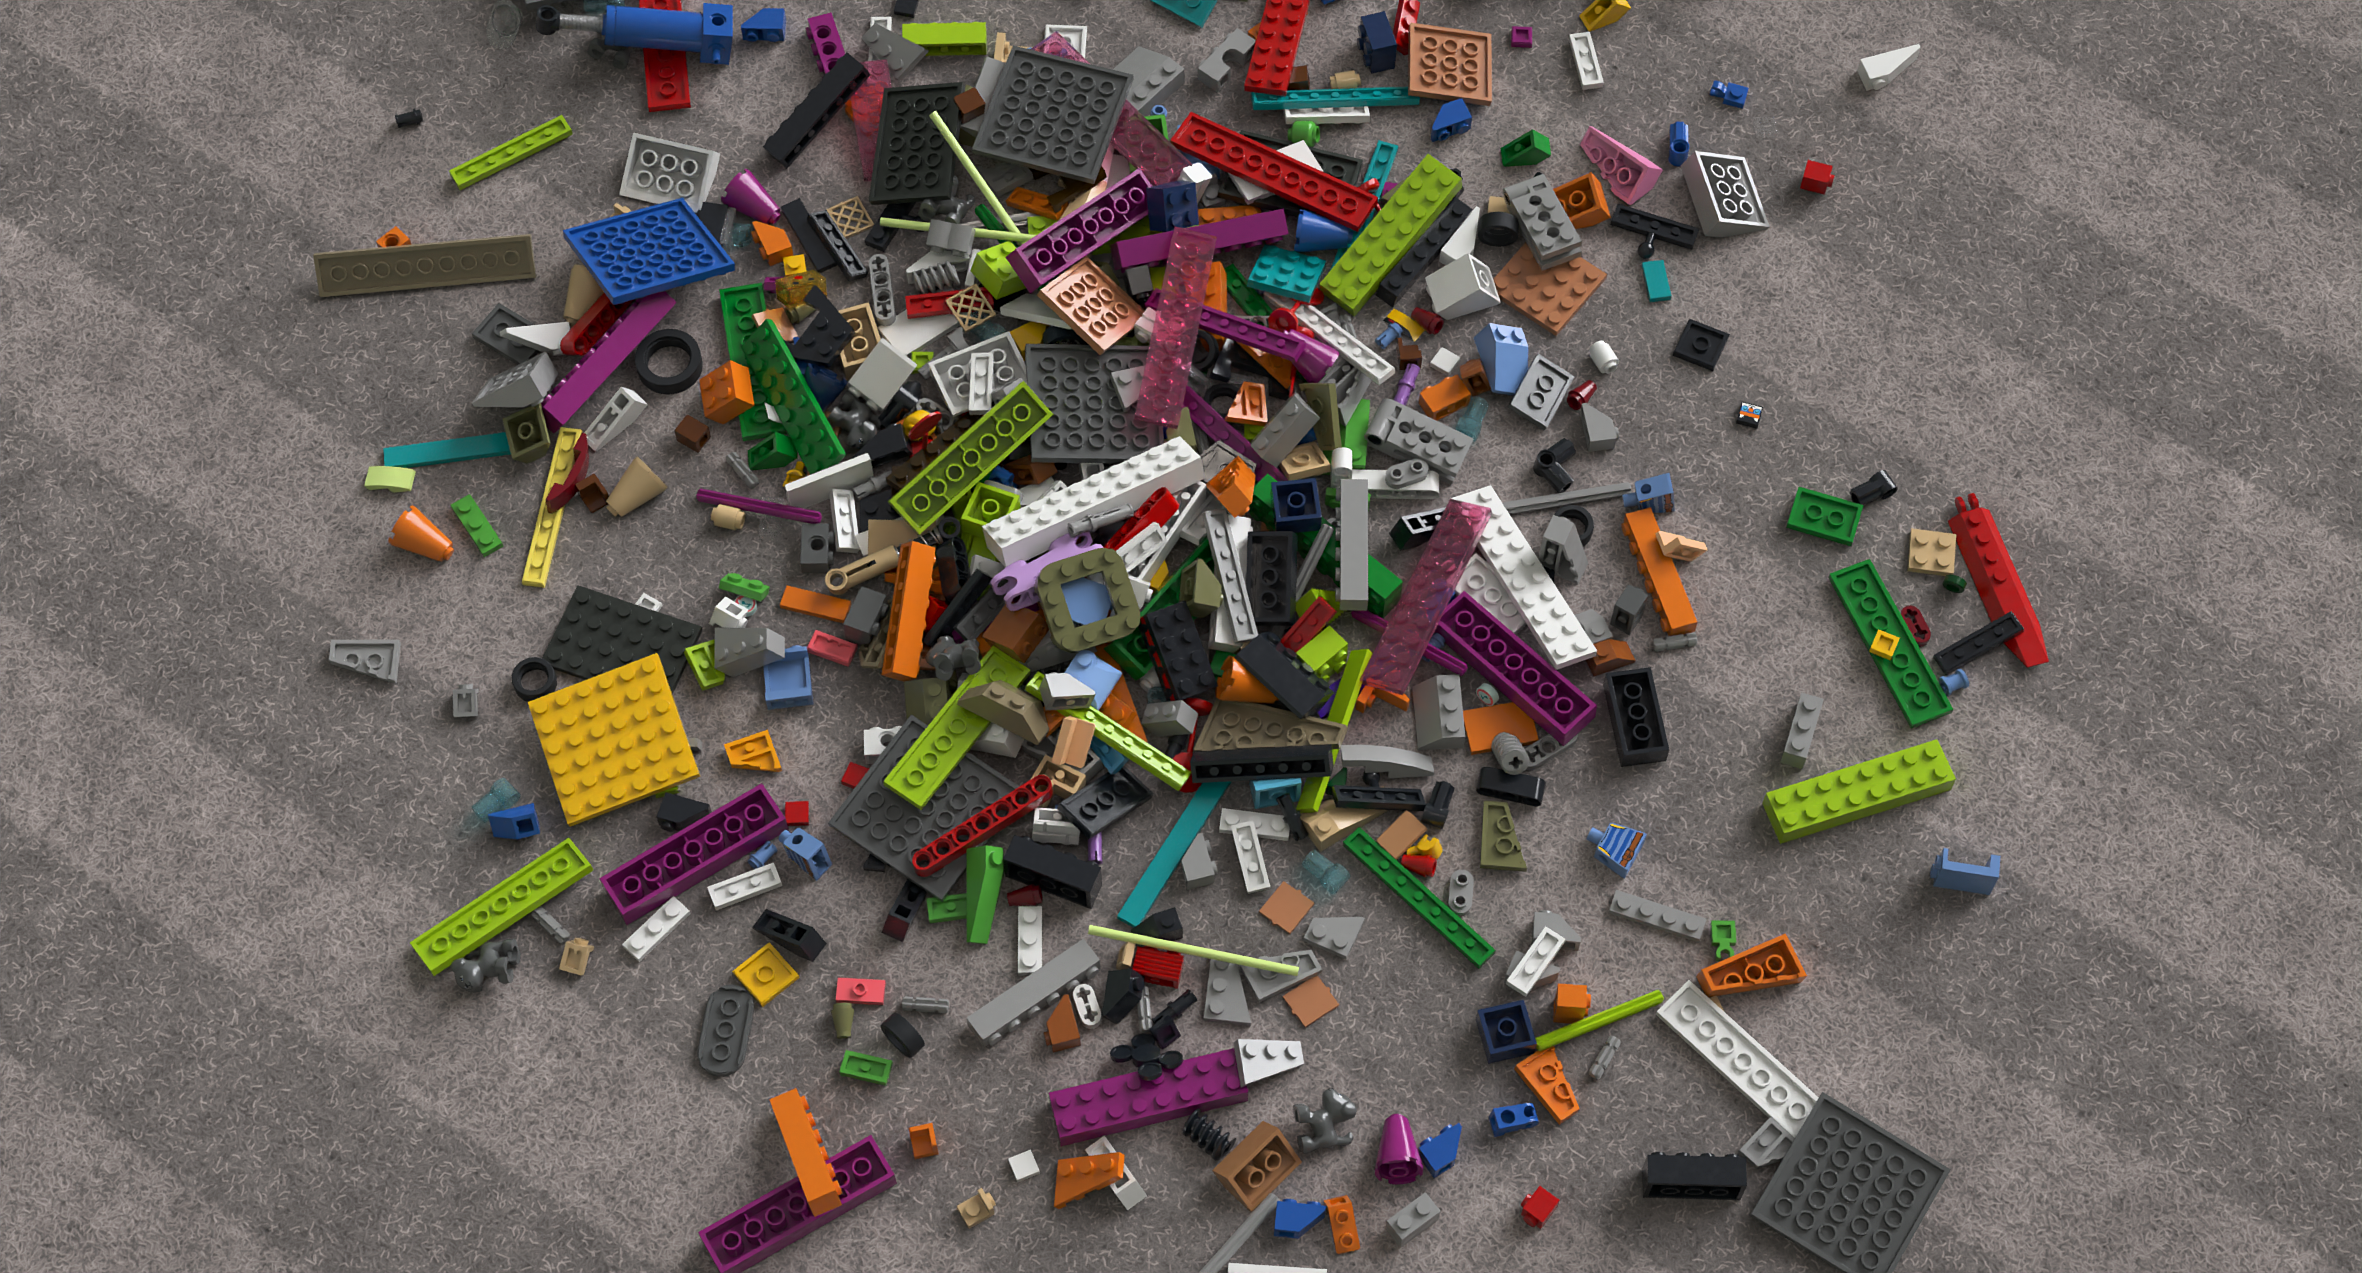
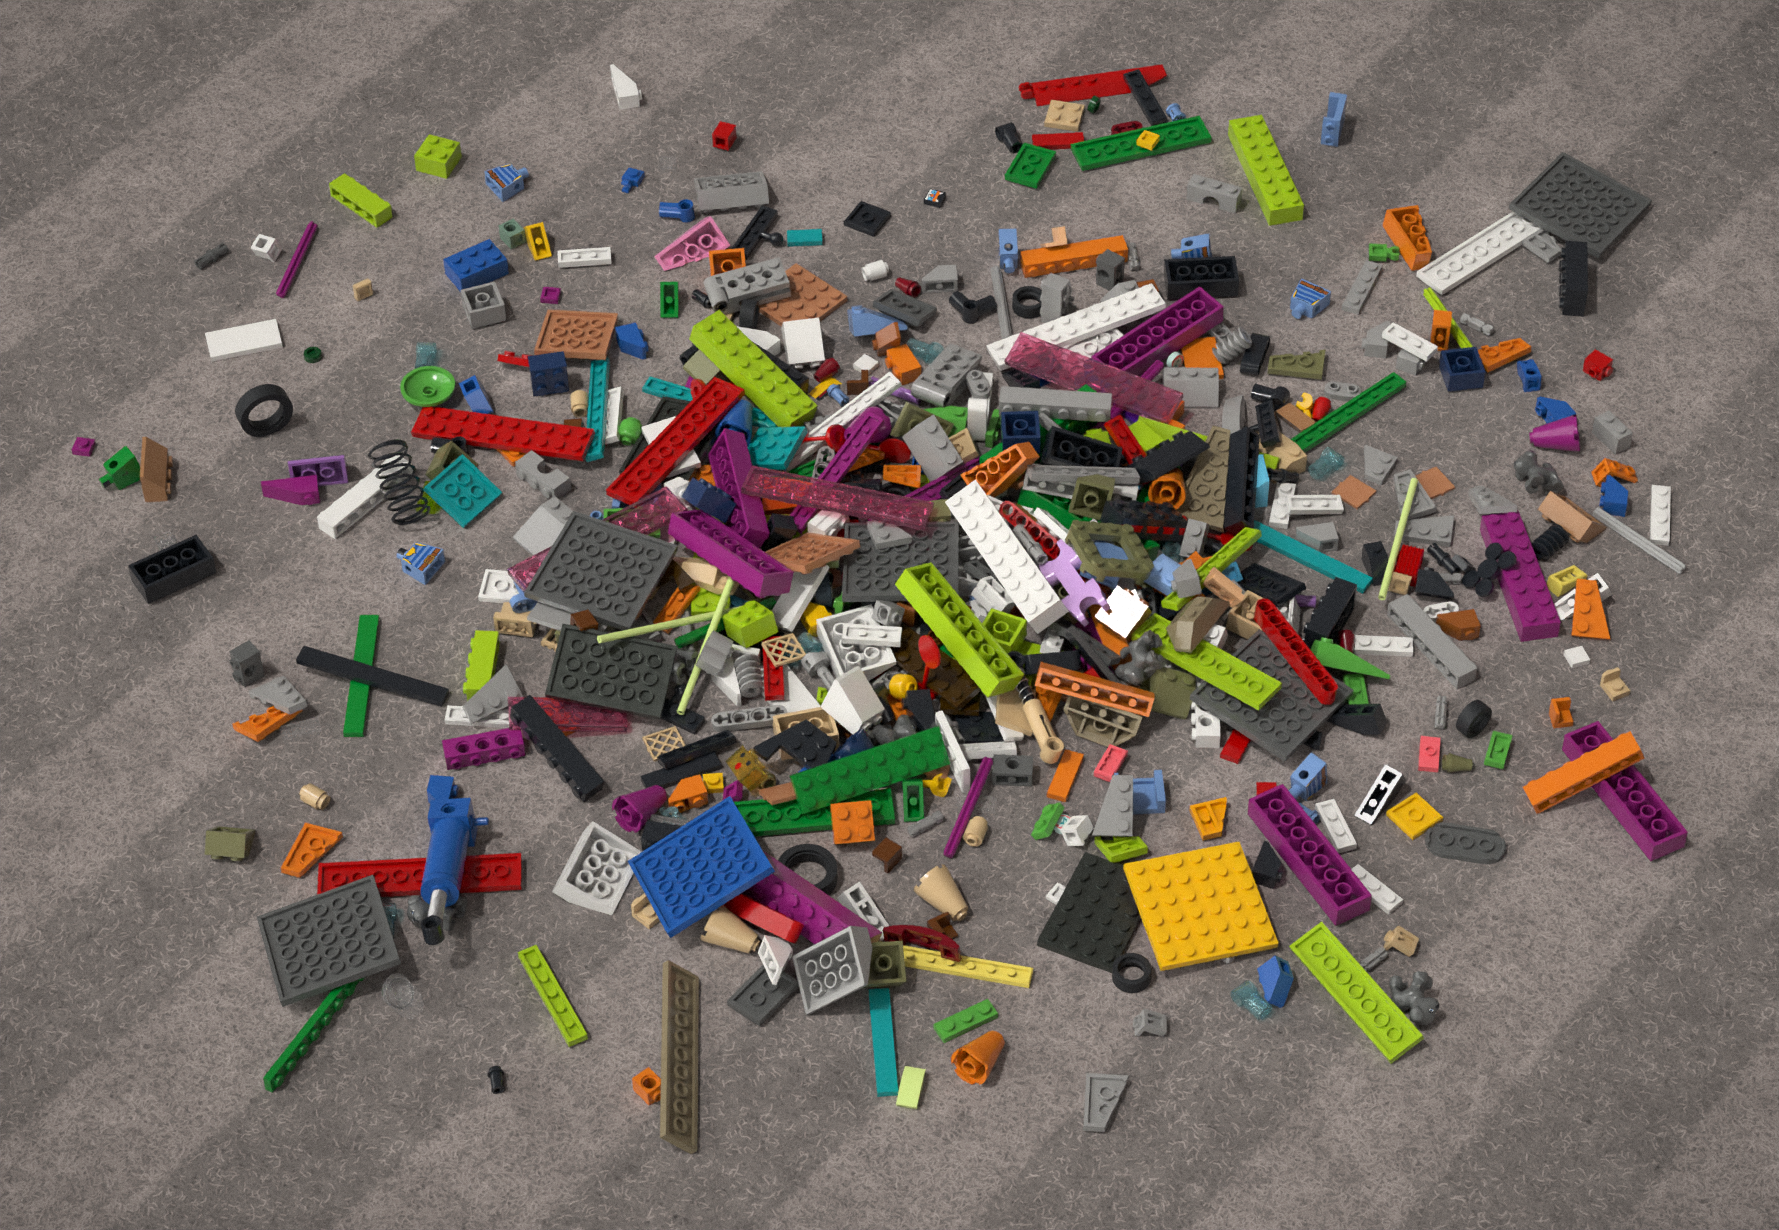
camera: 85 degrees left, 15 degrees down
(865, 616) = (1090, 730): dark grey slope -> none
(1160, 1152) = (1567, 581): none -> light yellow slope
(1681, 702) = (1193, 247): none -> medium blue torso
(1880, 546) = (1057, 140): none -> red tile

